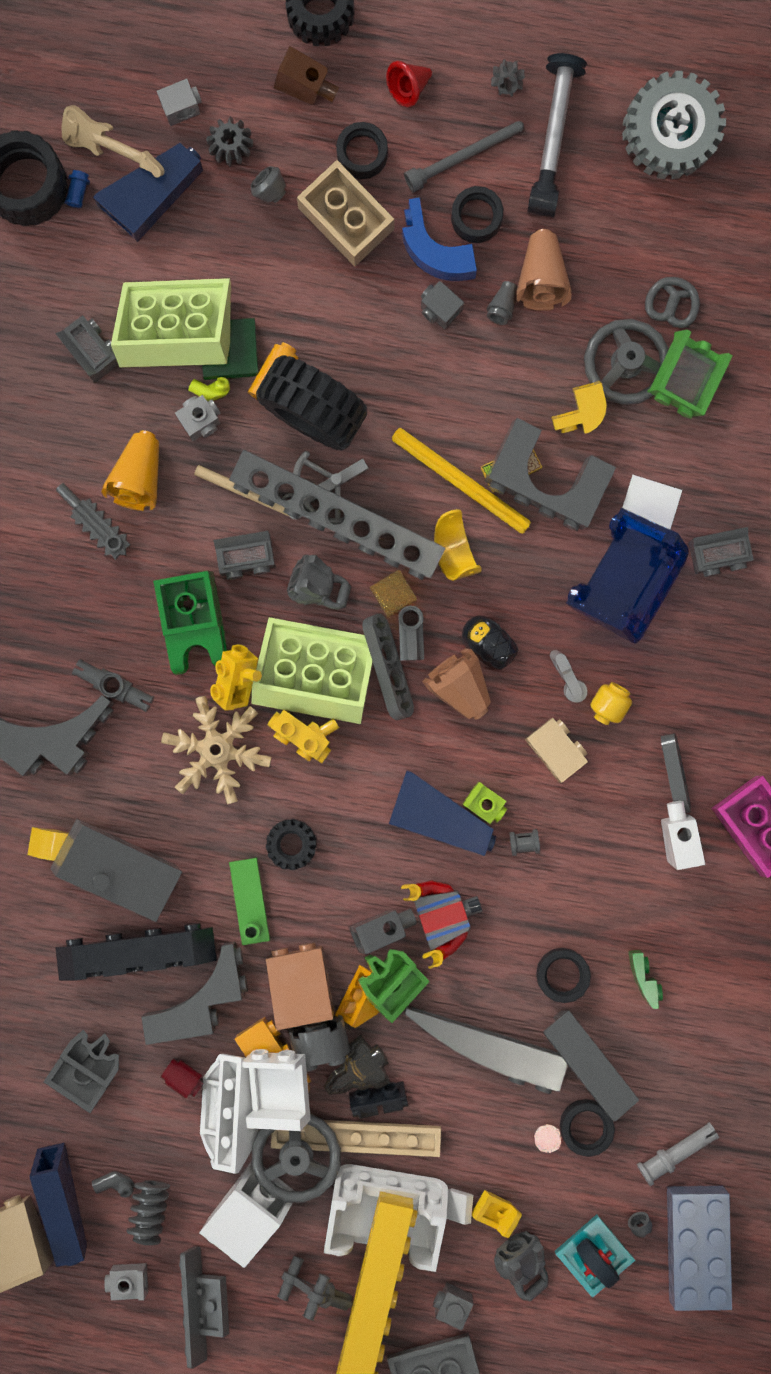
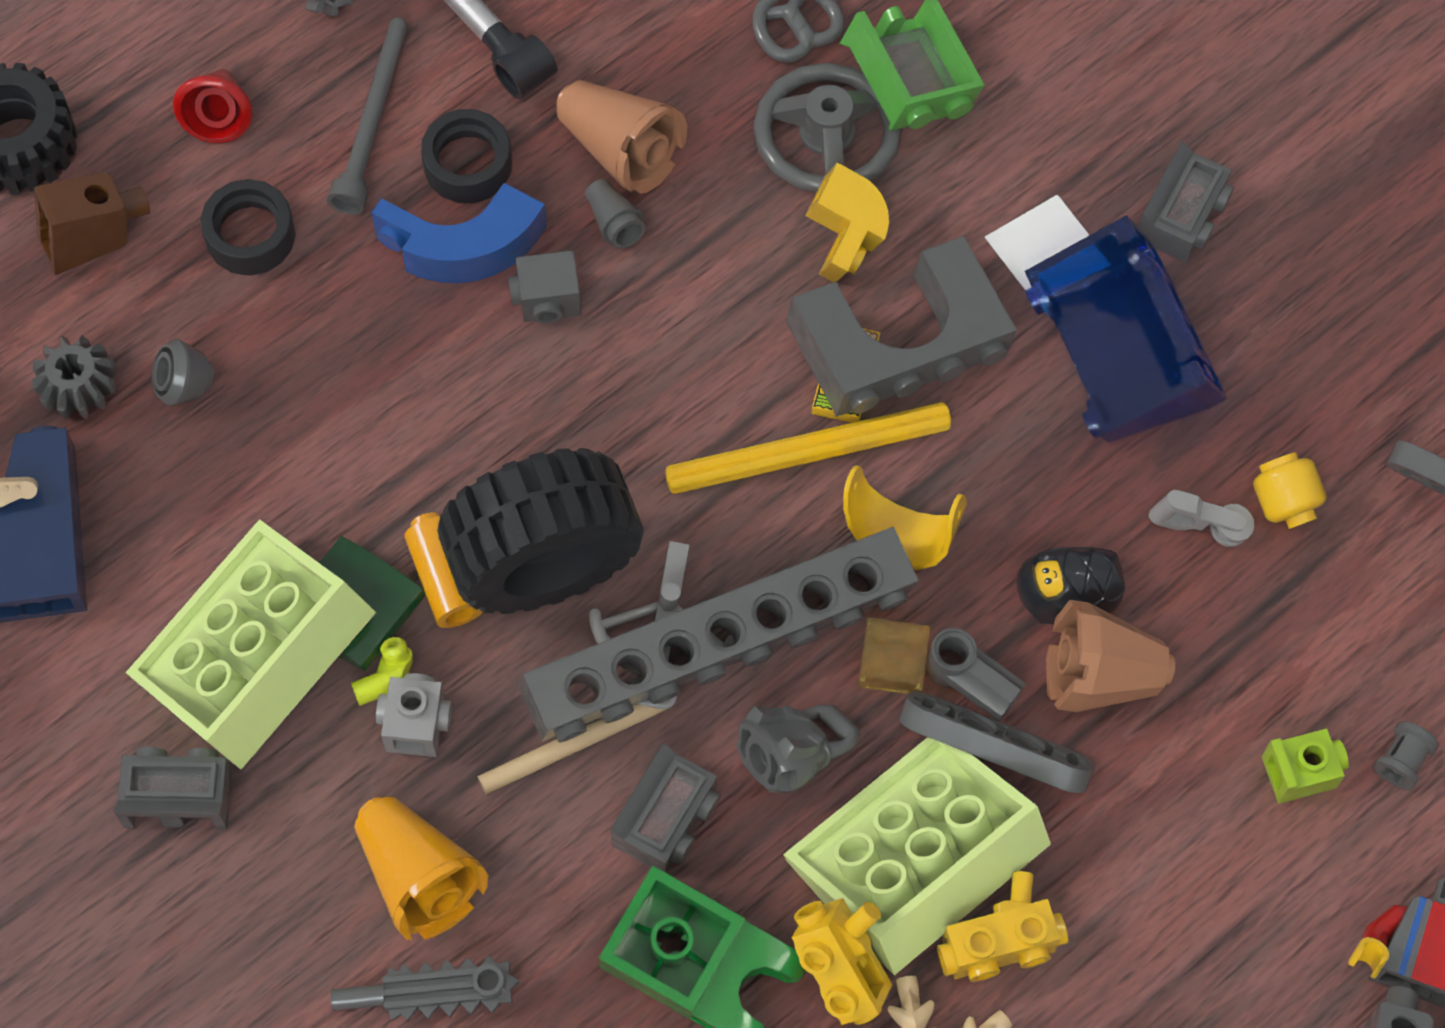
camera: 55 degrees left, 20 degrees down
(345, 213) = (313, 305): tan brick -> none
(436, 816) = (1274, 843): dark blue slope -> none
(557, 750) = (1301, 610): tan brick -> none

